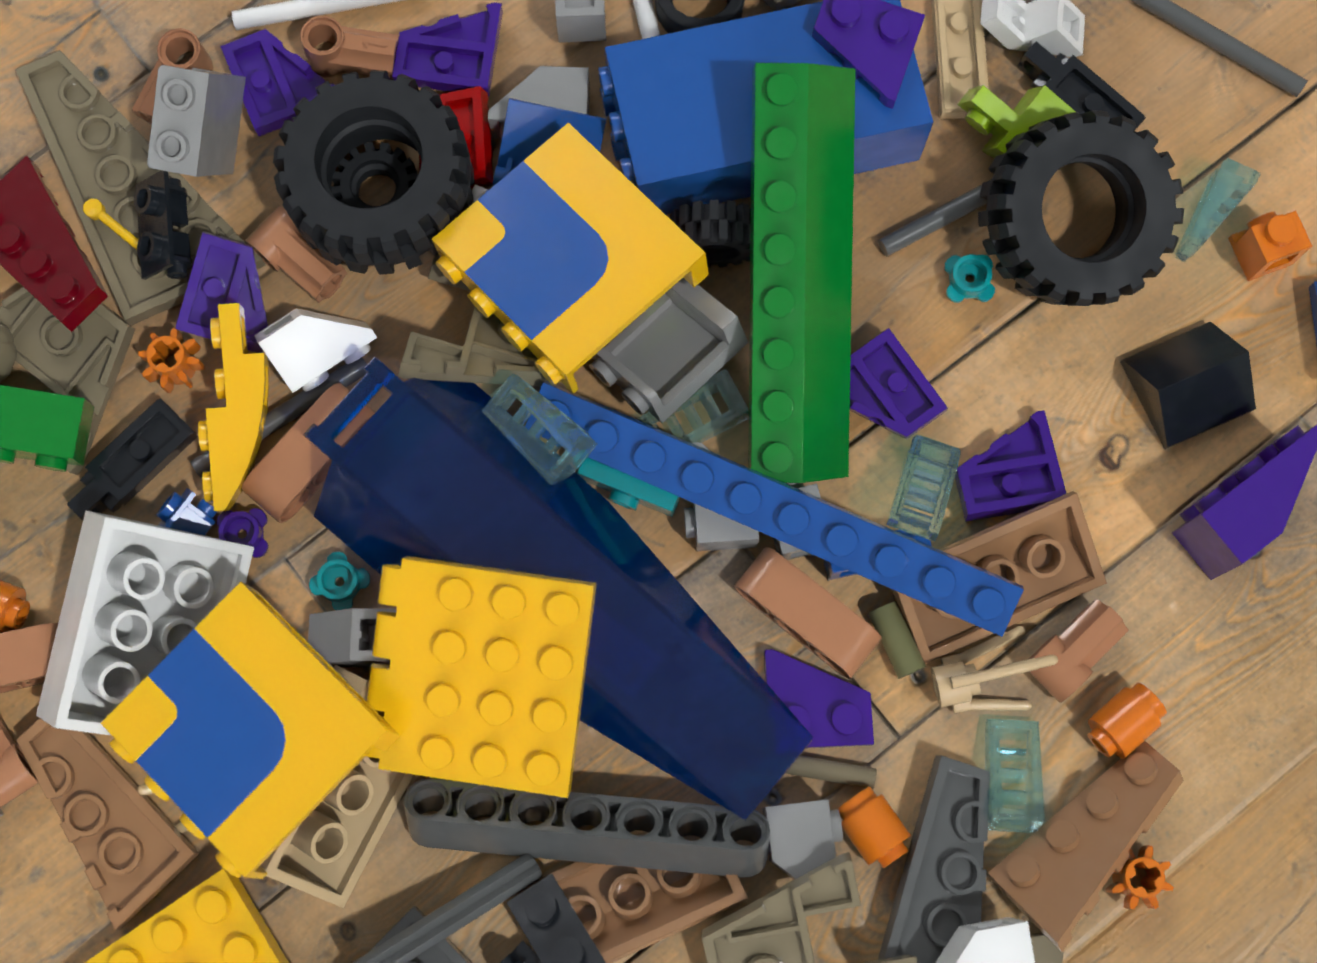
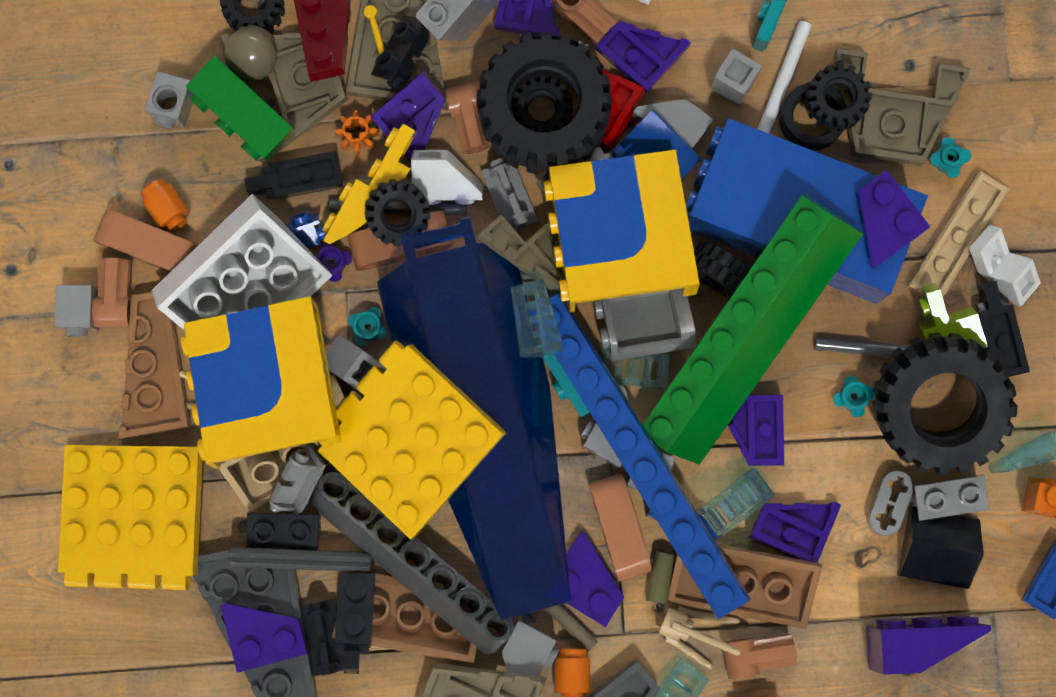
camera: 35 degrees right, 5 degrees up
(250, 413) = (391, 191): none -> black tyre
(378, 807) = (303, 472): none -> light grey hinge
(400, 900) = (283, 531): none -> black hinge
(403, 310) = (509, 194): none -> light grey hinge
(1086, 374) = (898, 505): none -> light grey beam
(1161, 316) = (950, 497): none -> light grey hinge

